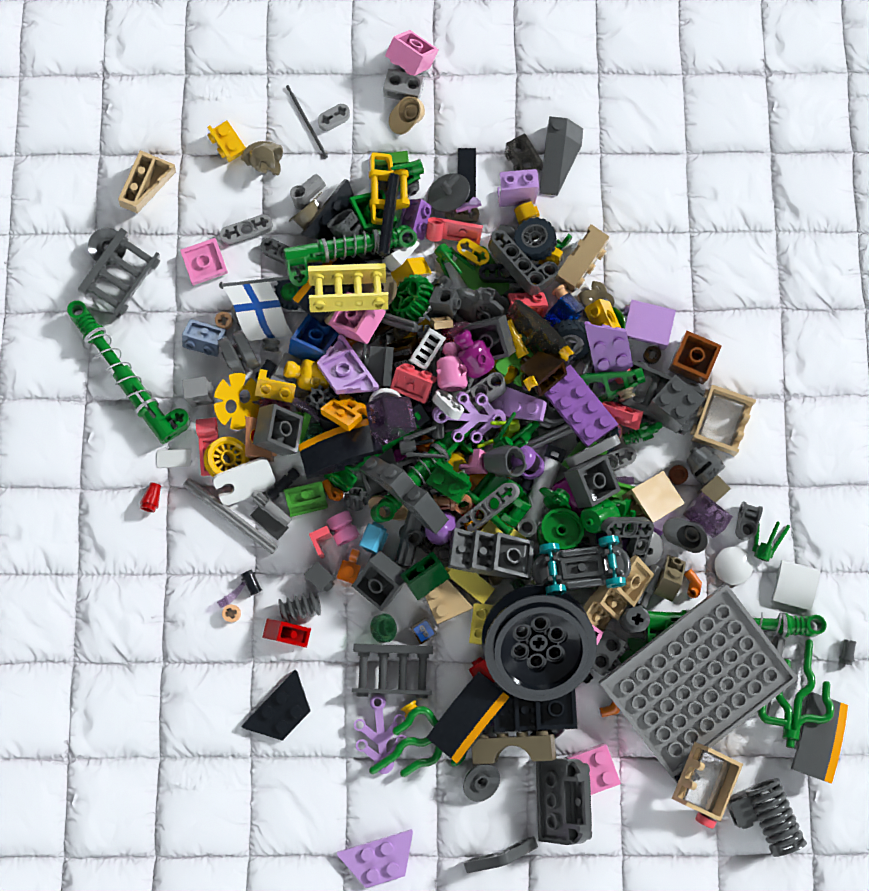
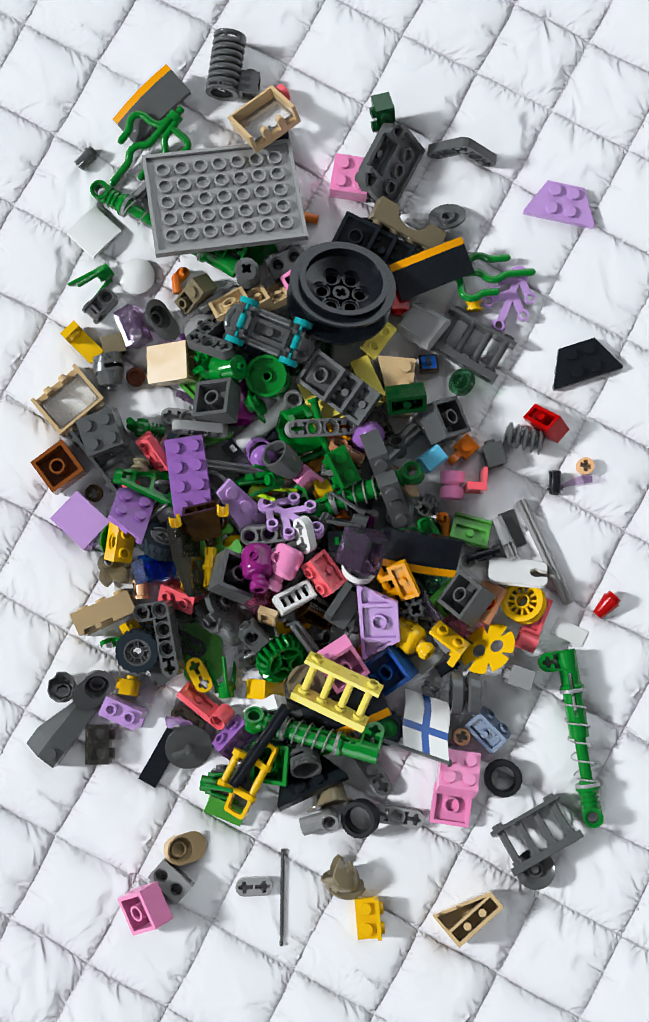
camera: 150 degrees left, 5 degrees up
(163, 293) = (517, 778): none -> black tyre
(205, 286) = (461, 777): none -> bright pink brick
(275, 199) = (373, 813): none -> black tyre
(446, 660) = (423, 326): none -> light grey slope
(553, 195) = (93, 689): none -> dark grey piece
(580, 183) = (61, 687): none -> dark grey hair
(600, 850) = (381, 111): none -> dark green brick
(744, 478) = (81, 341): none -> yellow bracket

